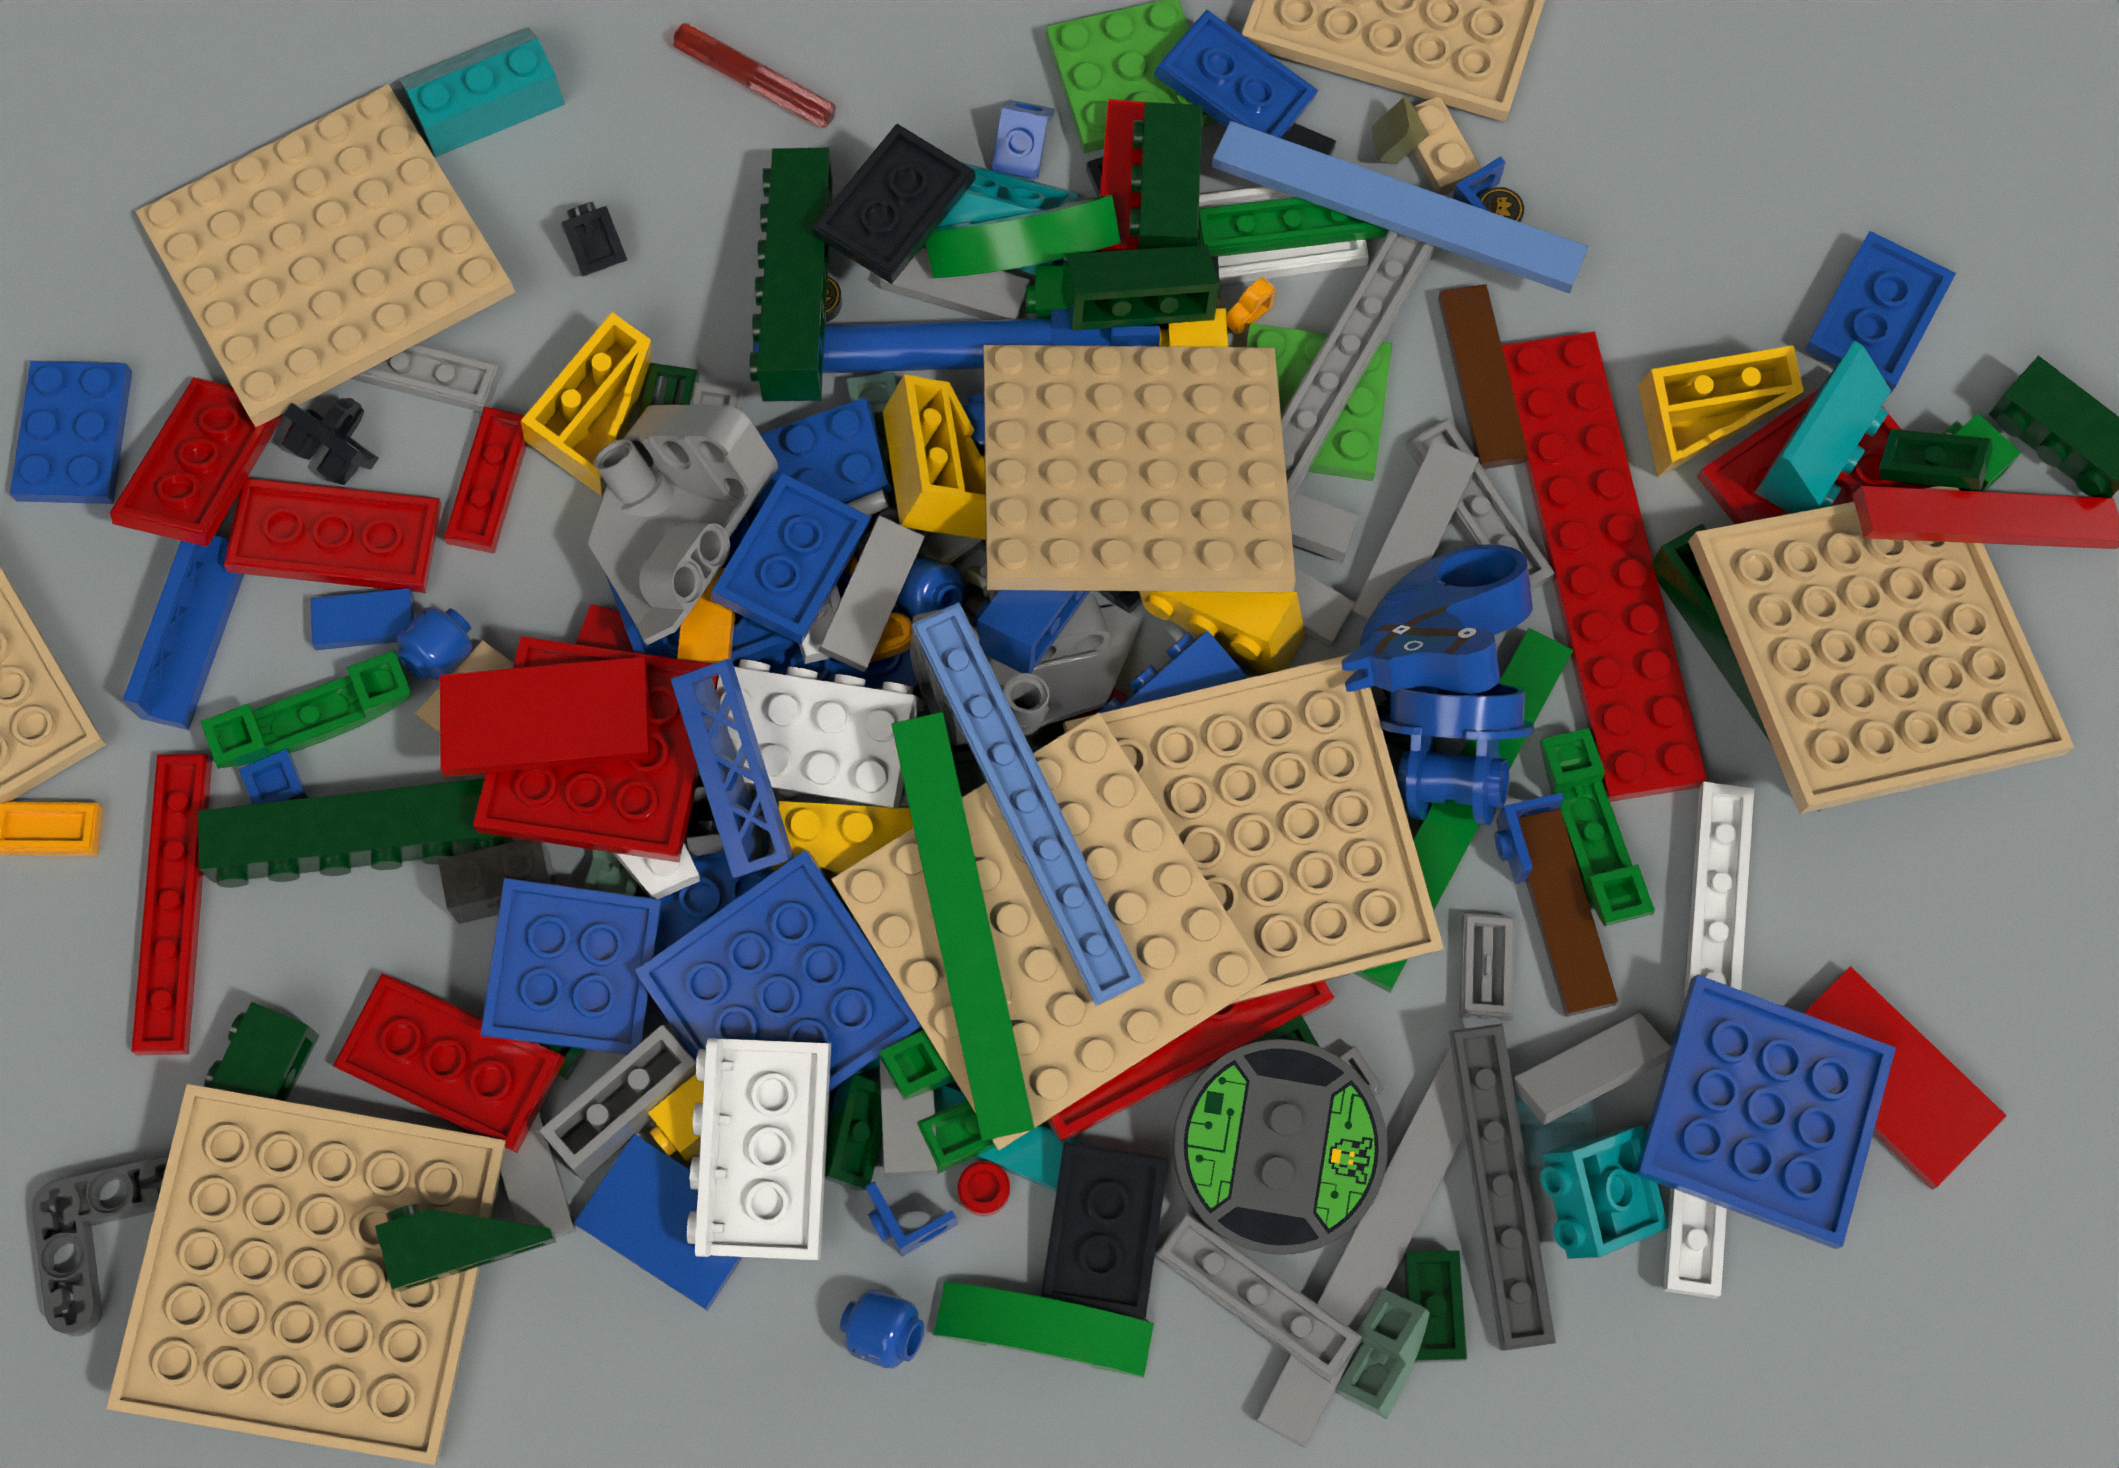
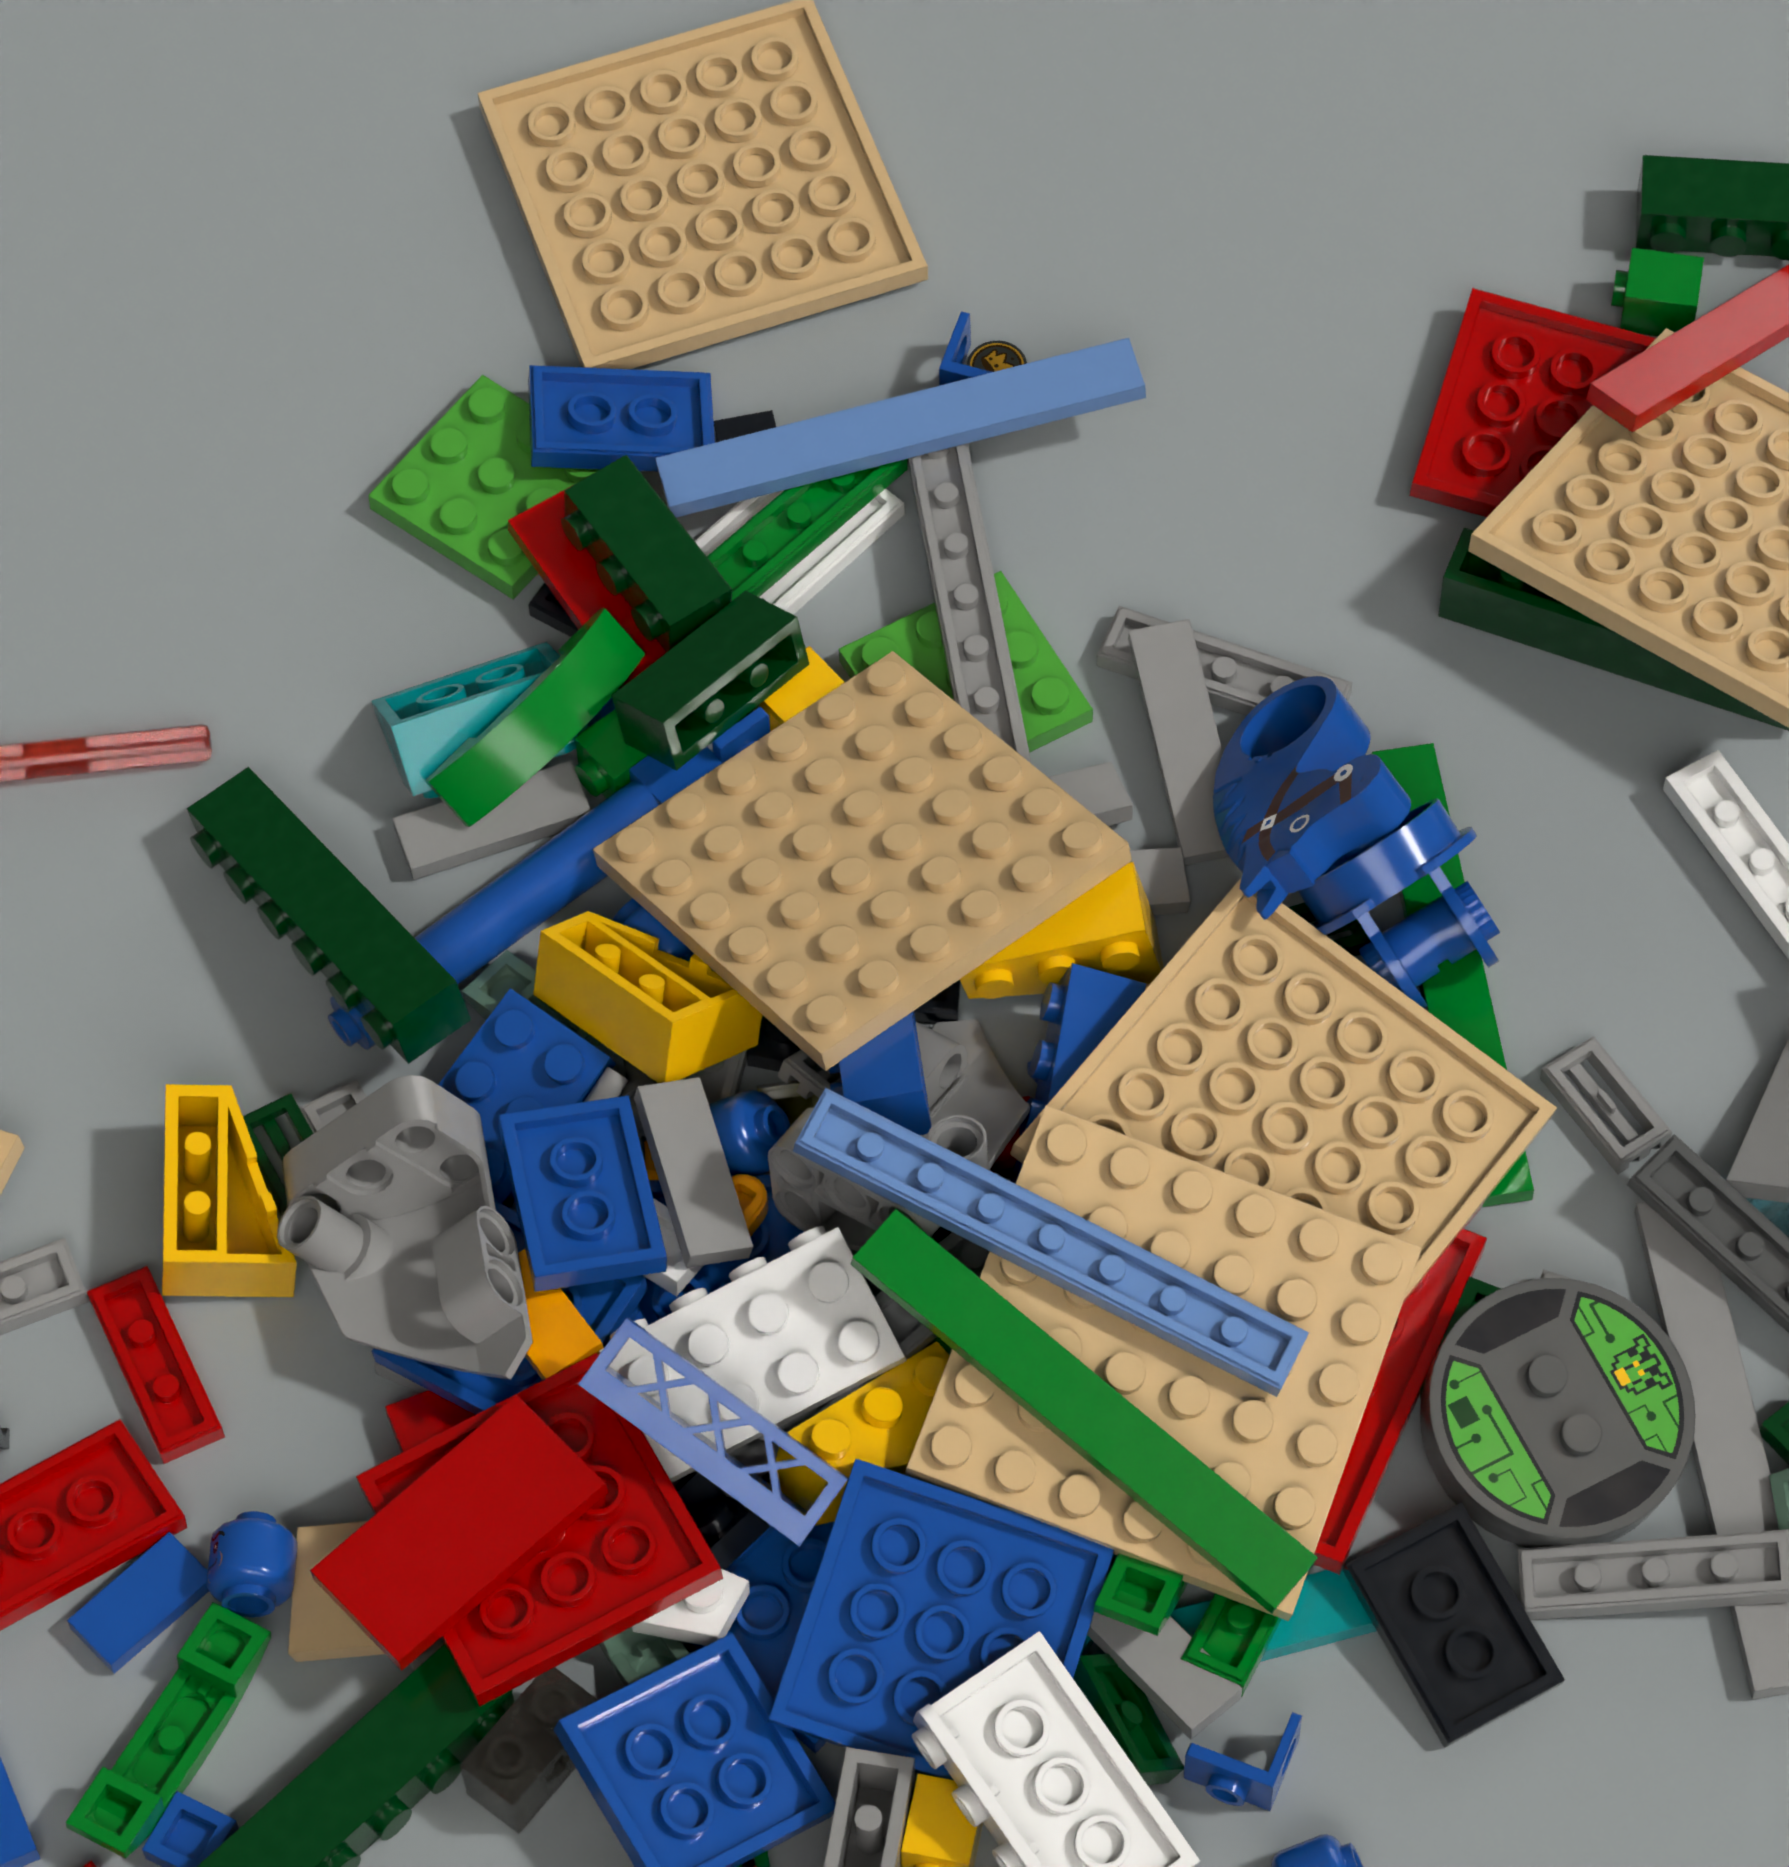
camera: 35 degrees left, 10 degrees down
(593, 238) = (58, 1037): black bracket -> none
(894, 203) = (381, 768): black tile -> none
(983, 1188) = (1297, 1681): red tile -> none
(1021, 138) = (440, 626): bracket -> none
(1044, 1327) = (1468, 1765): green slope -> none
(1251, 306) = (828, 625): light orange tile -> none
(1398, 132) = (829, 359): olive slope -> none
(1444, 152) = (879, 347): tan plate -> none
(1482, 376) = (1116, 542): reddish brown tile -> none
(1509, 838) = (1527, 962): blue bracket -> none
(1565, 916) = (1634, 1000): reddish brown tile -> none
(1598, 846) = (1594, 902): green slope -> none
(1603, 569) = (1392, 643): red plate -> none
(1714, 399) = (1367, 409): yellow wedge -> none
(1828, 435) = (1510, 364): teal slope -> none
(1883, 306) = (1454, 217): blue plate -> none
(1936, 459) = (1631, 317): dark green plate -> none

